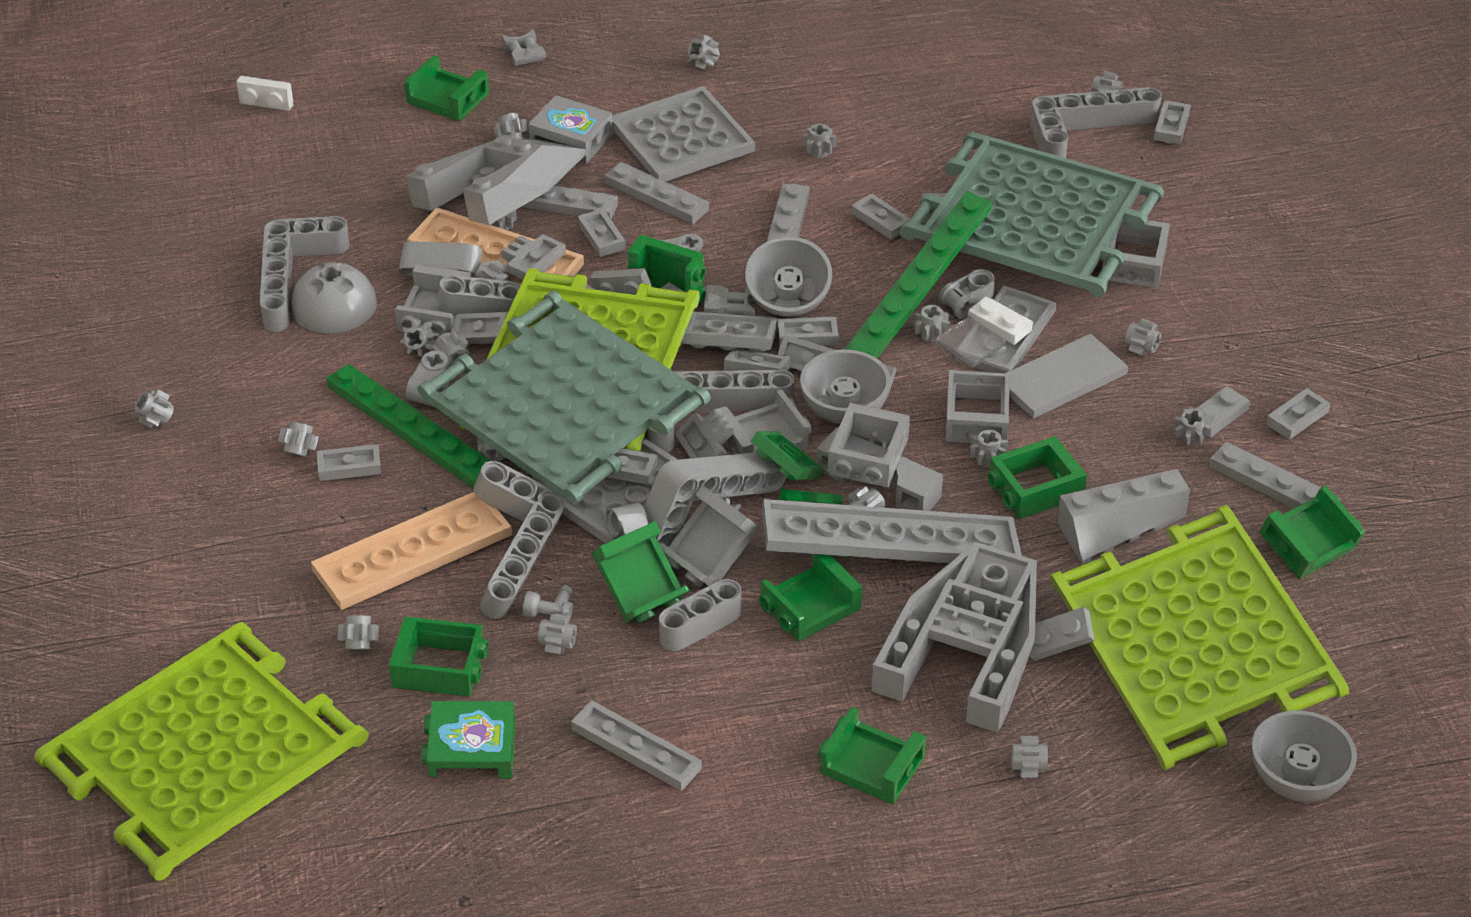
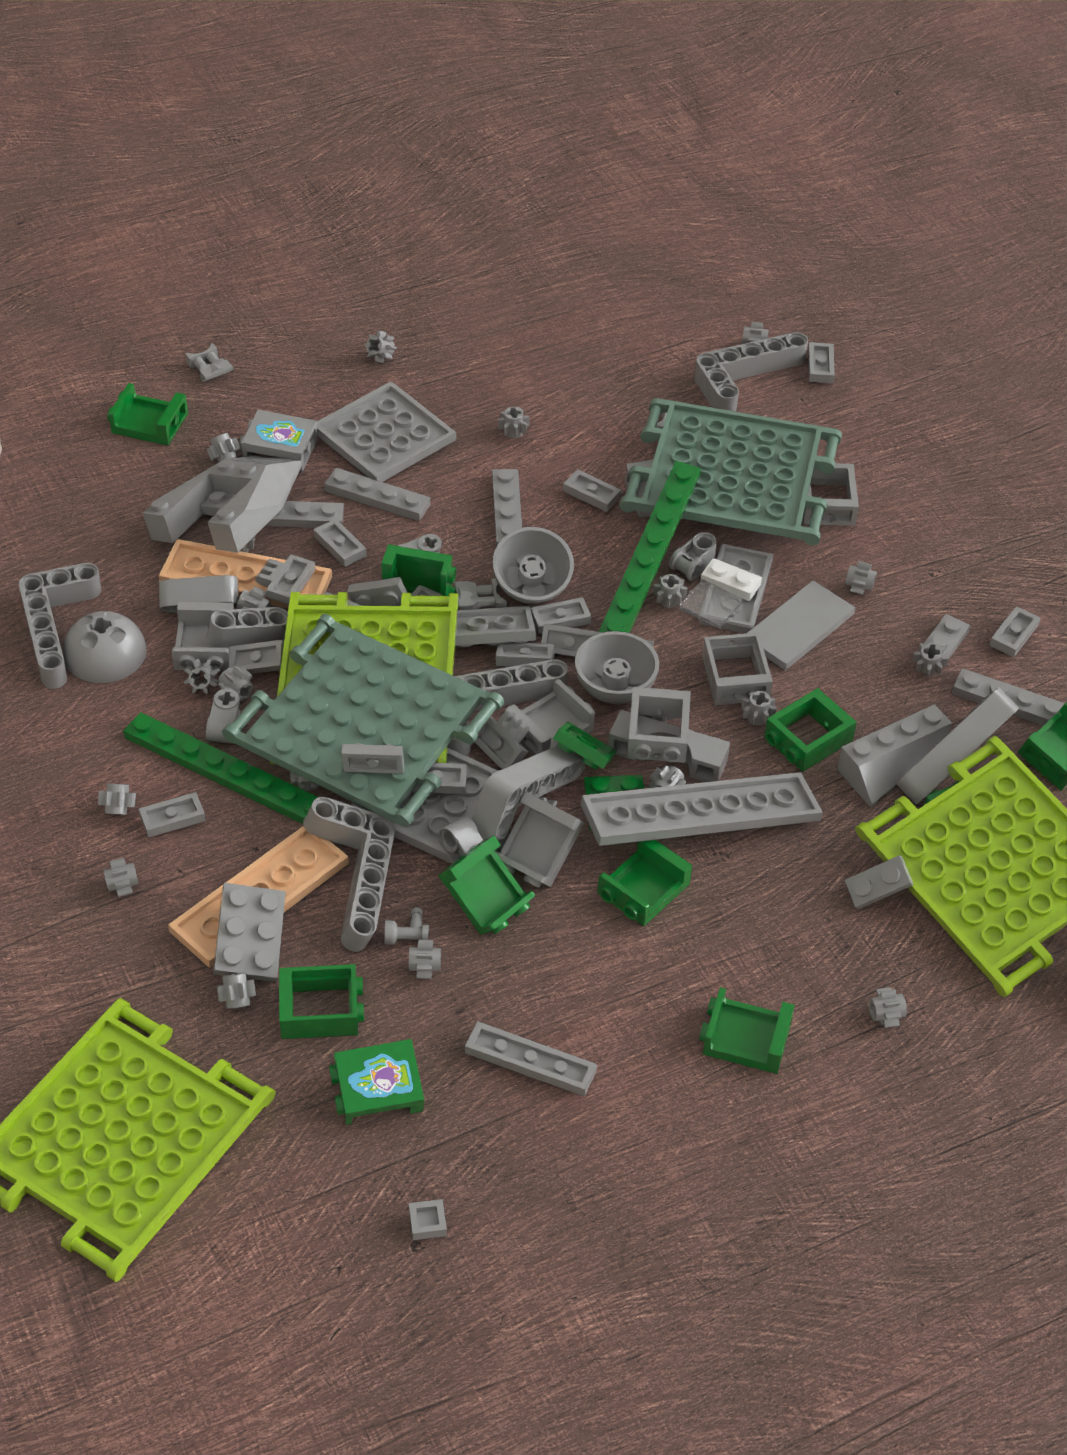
camera: 15 degrees left, 5 degrees up
(279, 511) = (121, 877): none -> light grey gear
(388, 579) = (249, 932): none -> light grey plate
(480, 876) = (427, 1219): none -> light grey plate
(554, 430) = (372, 758): none -> light grey plate
(700, 615) = (550, 917): light grey beam -> none
(975, 604) = (807, 869): light grey wedge -> none
(1230, 483) = (957, 745): none -> light grey beam

